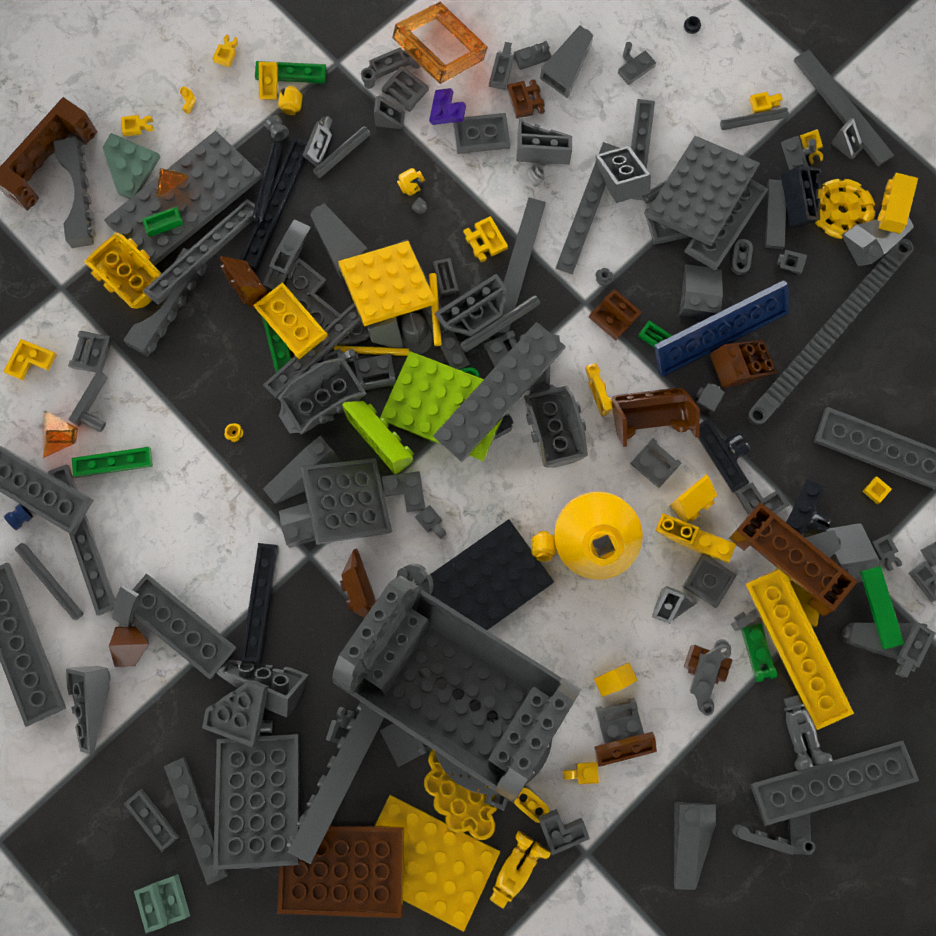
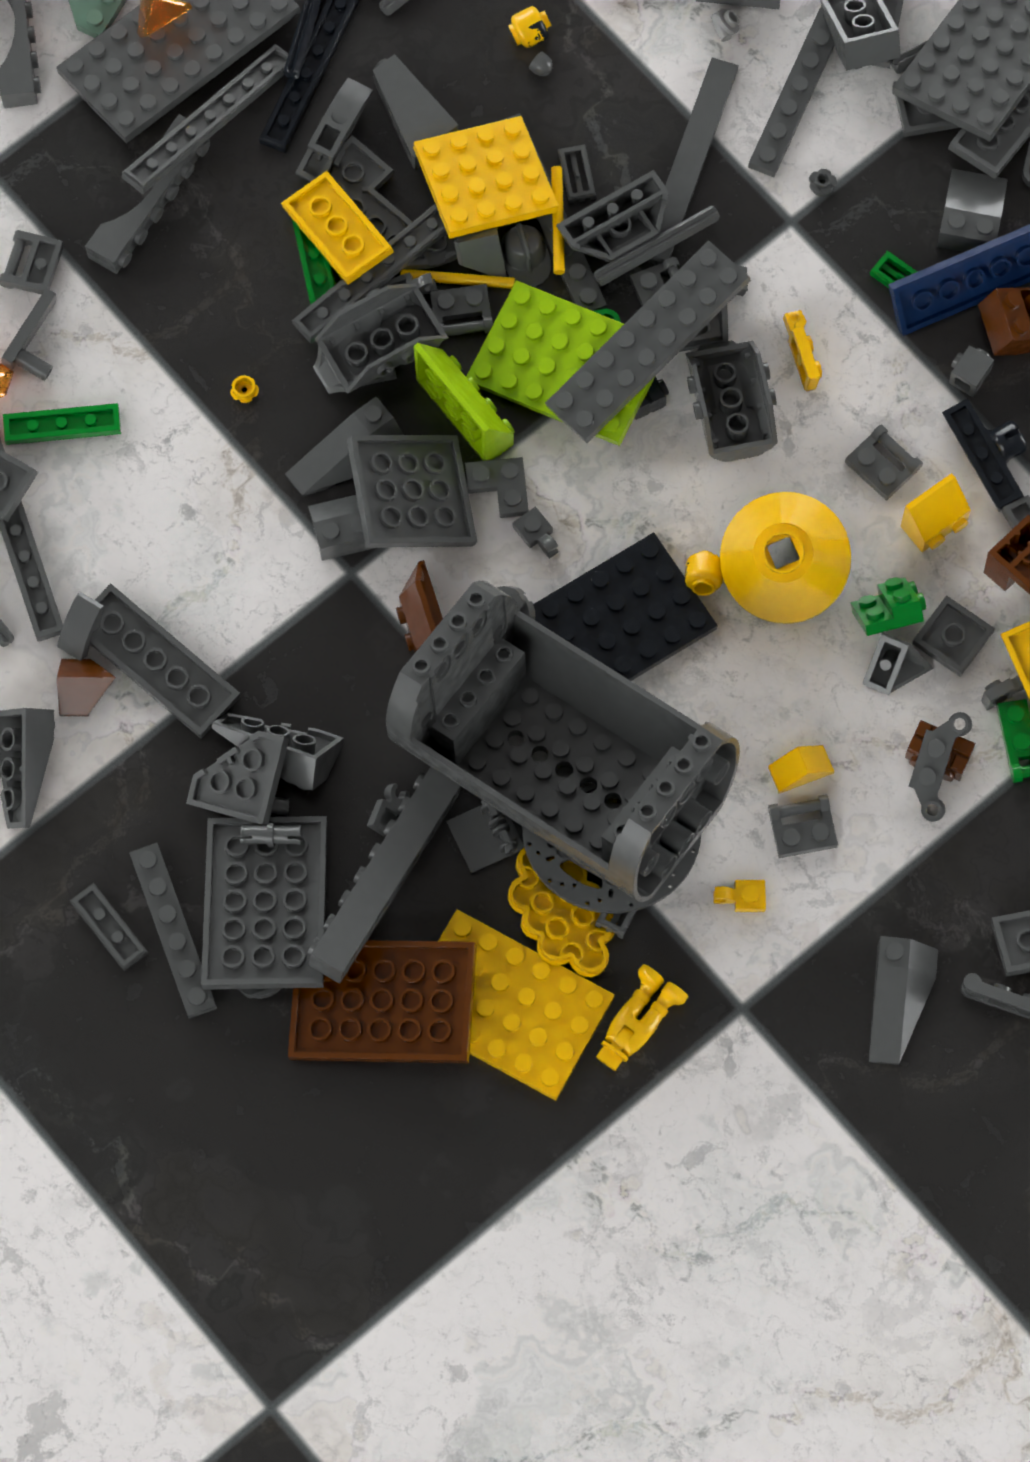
camera: 10 degrees right, 5 degrees down
(123, 269) = (88, 141): yellow slope -> none
(162, 221) = (148, 73): green tile -> none
(162, 903) = (121, 1038): sand green slope -> none
(243, 280) = (268, 166): reddish brown slope -> none
(258, 753) = (271, 834): none -> dark grey pin
(259, 603) = (275, 635): black tile -> none
(490, 236) = (649, 115): yellow plate -> none
(531, 804) = (665, 933): yellow plate -> none
(560, 836) = (703, 977): dark grey plate -> none
(615, 314) = (836, 240): reddish brown slope -> none
(625, 749) = (808, 863): reddish brown plate -> none
(655, 409) = (883, 384): reddish brown windscreen -> none
(669, 566) = (894, 607): none -> green plate
(694, 538) = (932, 572): yellow slope -> none

